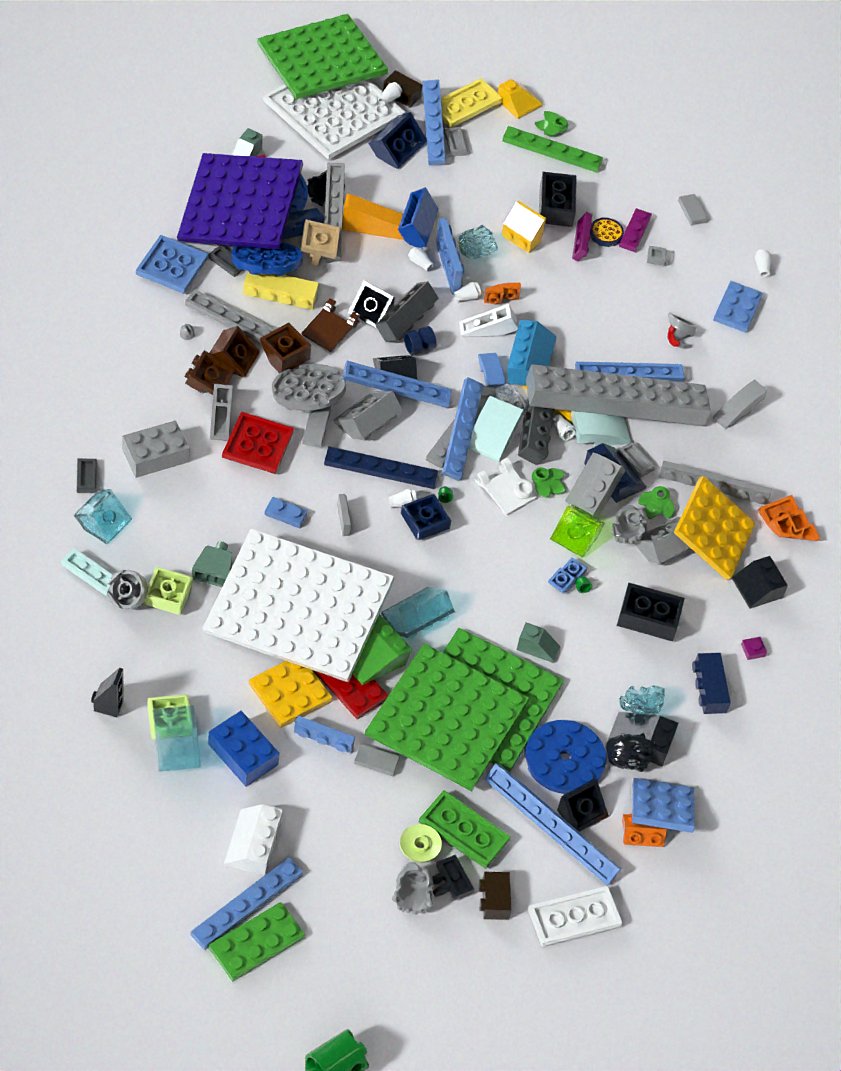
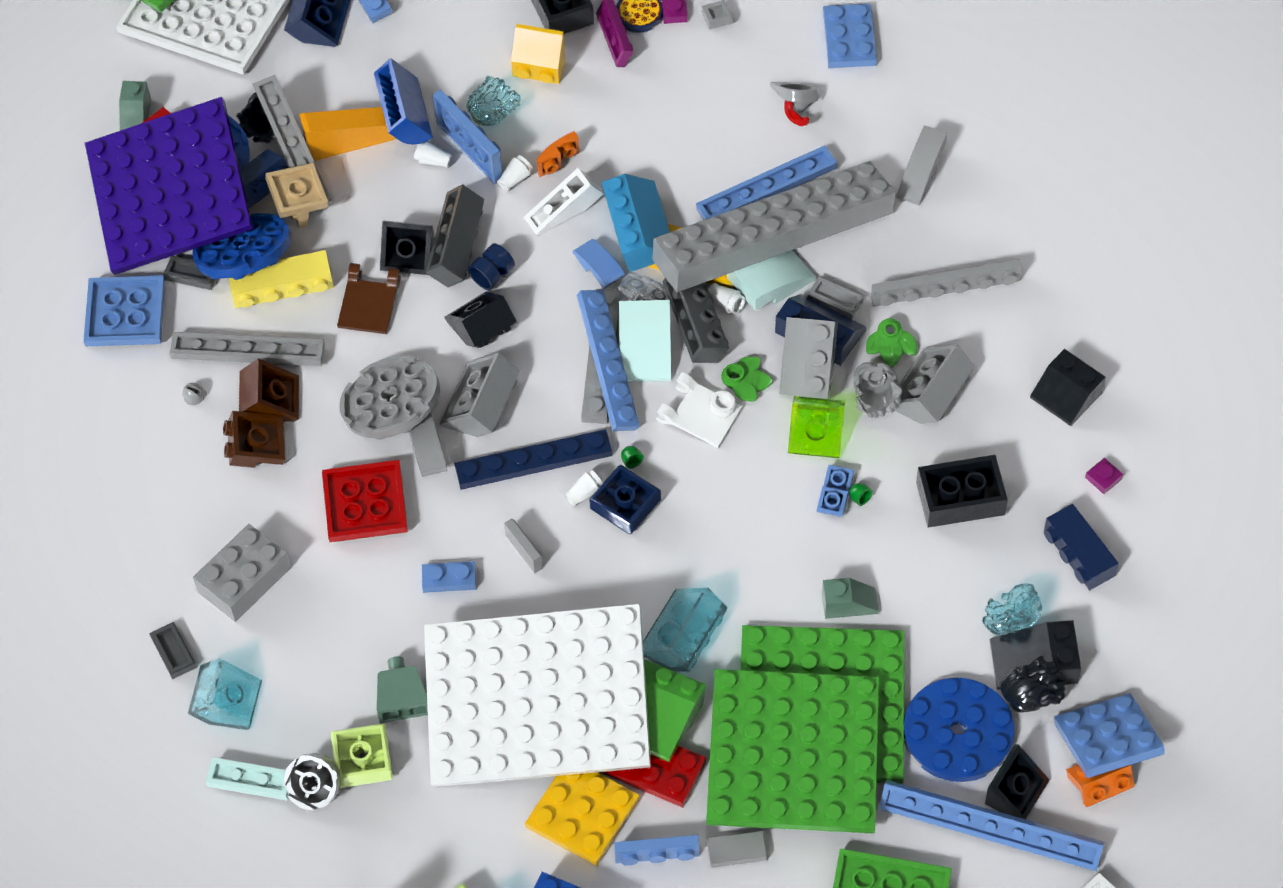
camera: 15 degrees left, 5 degrees up
(221, 412) = (297, 483): light grey slope -> none
(286, 348) = (332, 357): reddish brown slope -> none
(397, 383) = (496, 340): medium blue plate -> none
(714, 527) = (980, 344): yellow plate -> none
(787, 520) = (1057, 289): orange slope -> none

